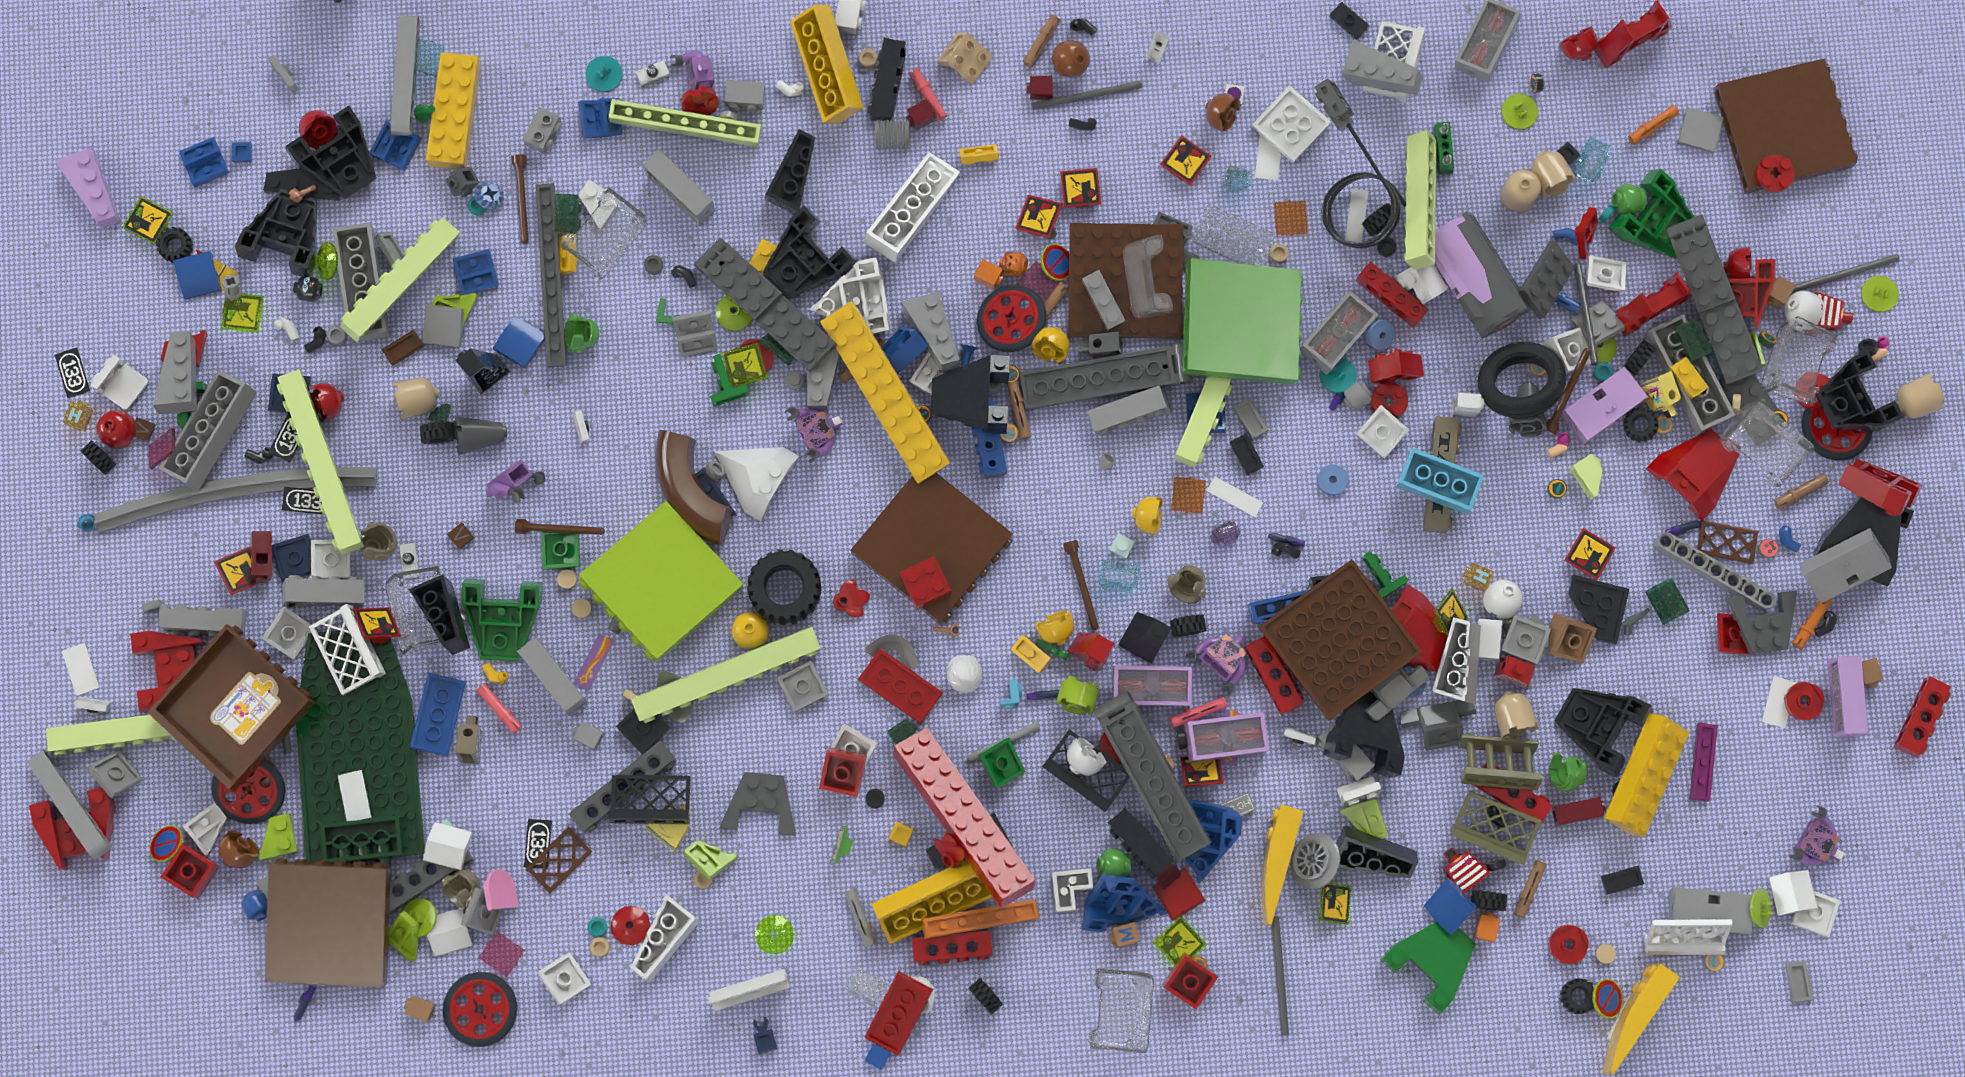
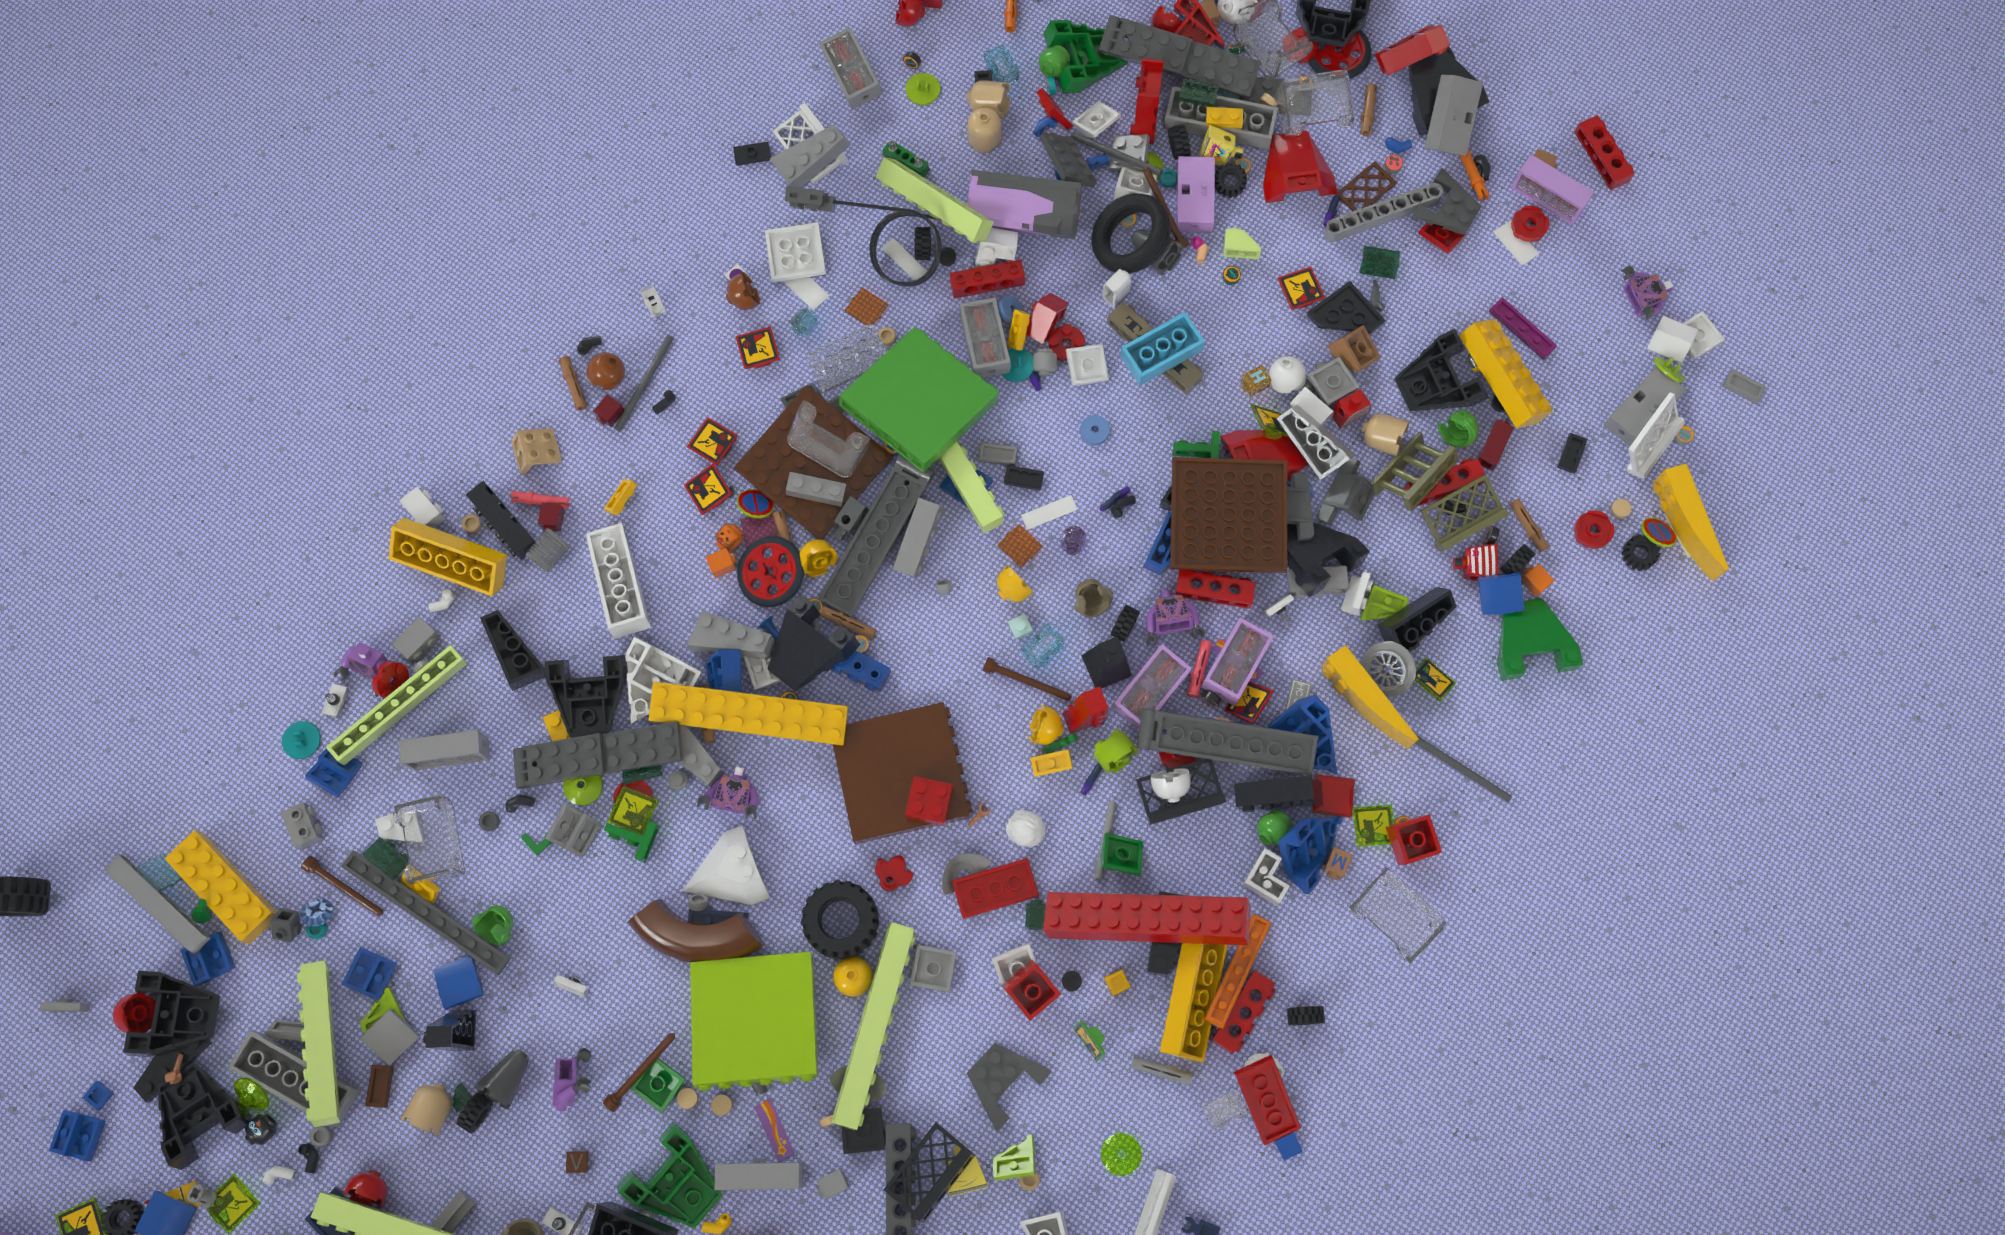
camera: 45 degrees left, 5 degrees down
(950, 850) = (1167, 951): red plate -> none
(1015, 692) = (1071, 798): medium azure bracket -> none
(1366, 353) = (1018, 329): none -> yellow plate

